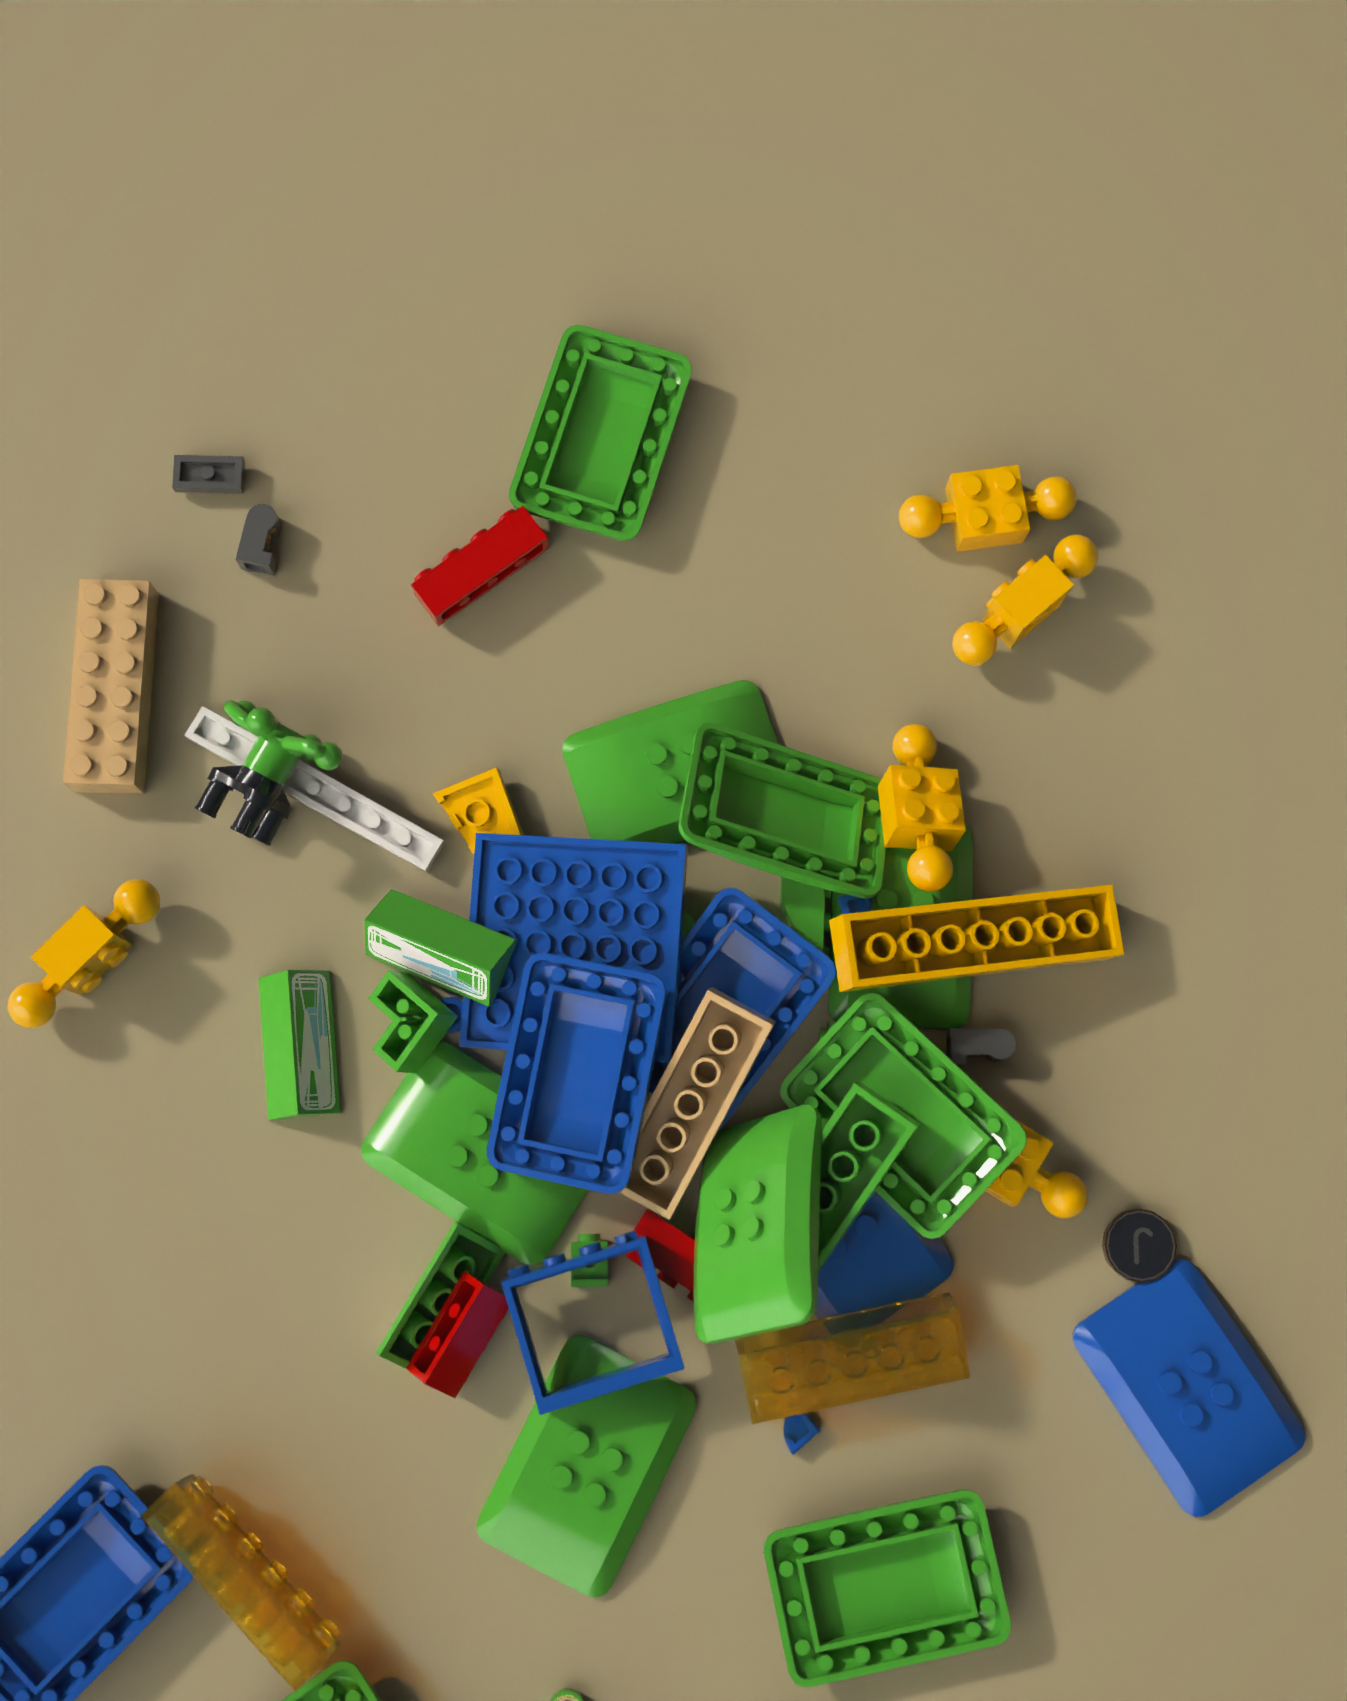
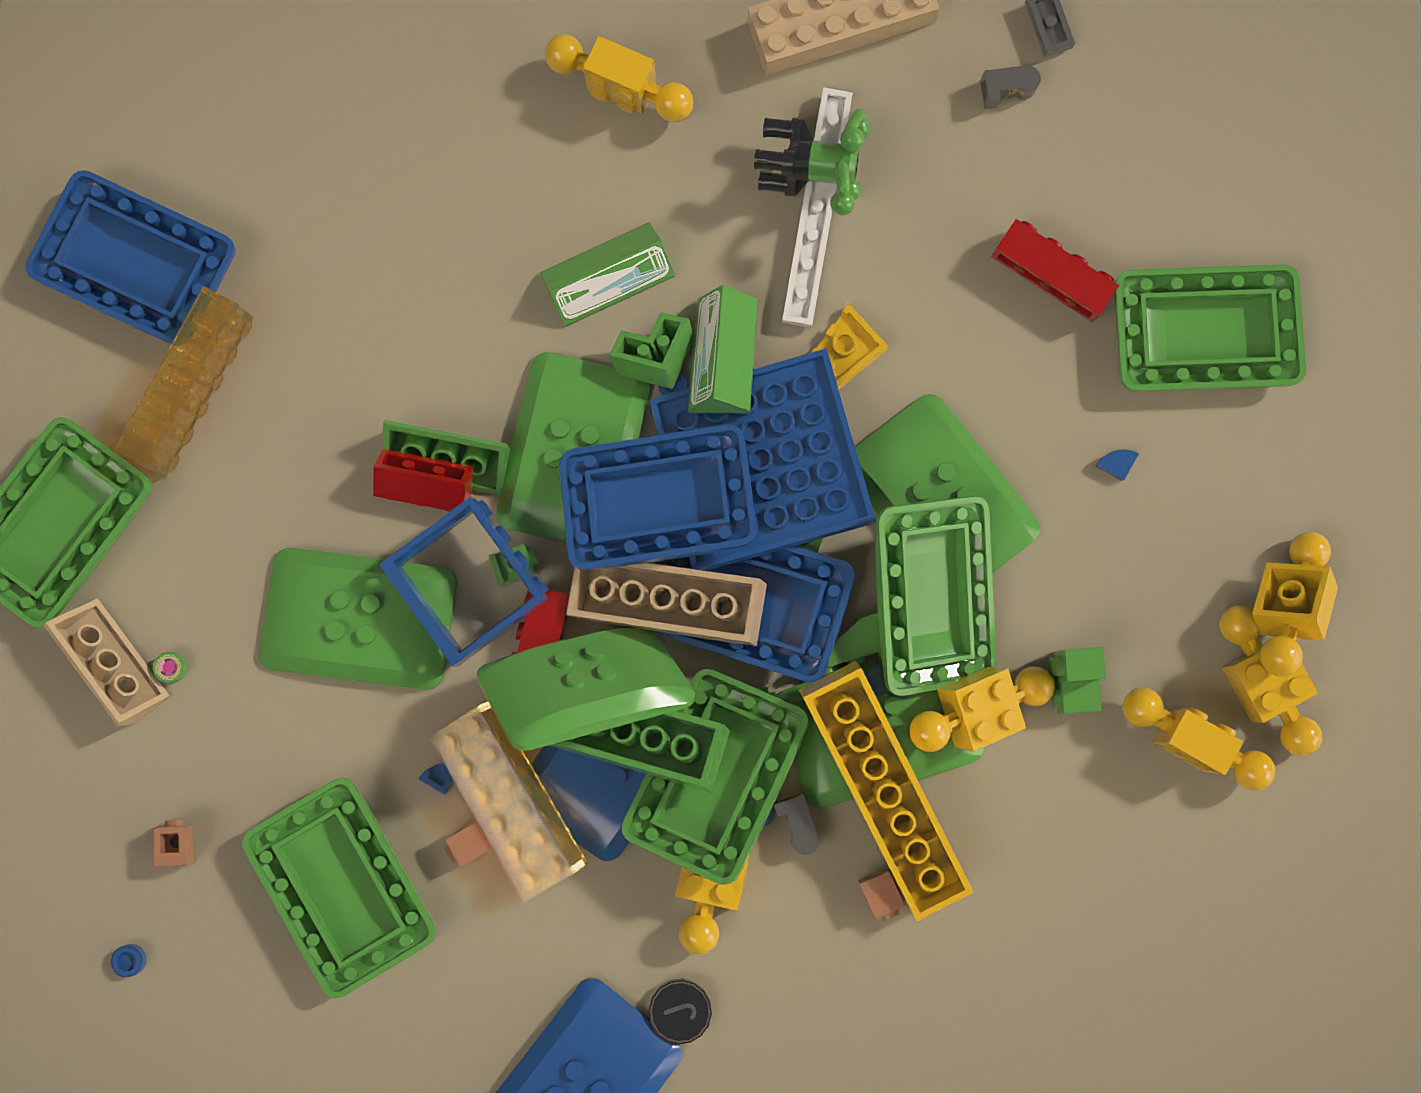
camera: 75 degrees right, 5 degrees up
(708, 576) = (1118, 463): none -> blue tile
(885, 1421) = (467, 845): none -> nougat brick
(918, 452) = (1295, 603): none -> yellow brick
(922, 699) = (1077, 679): none -> bright green brick
(1082, 983) = (881, 895): none -> nougat brick

